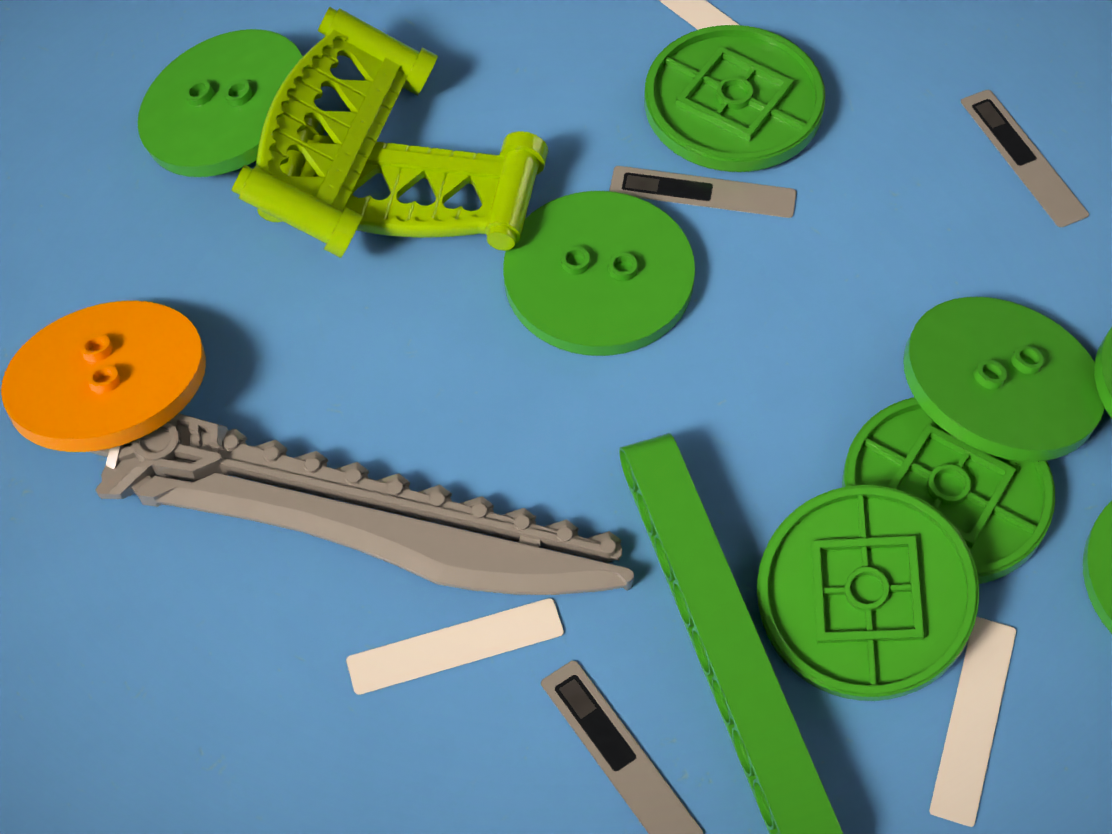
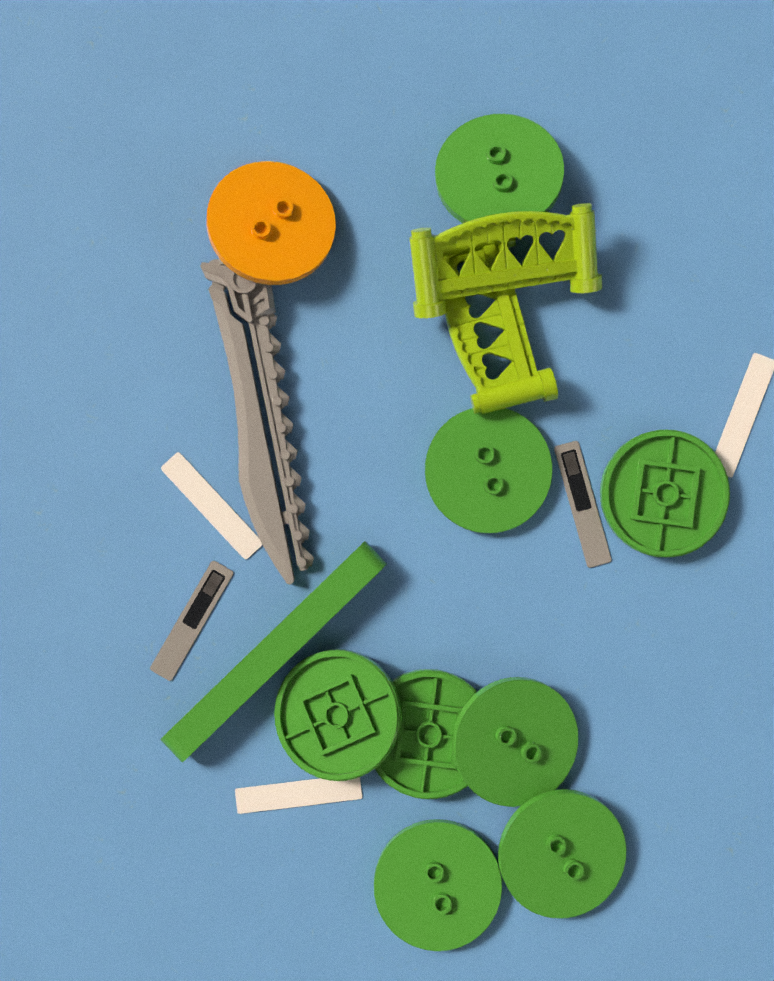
camera: 65 degrees right, 30 degrees up
(1024, 158) = (706, 693): light grey sticker -> none

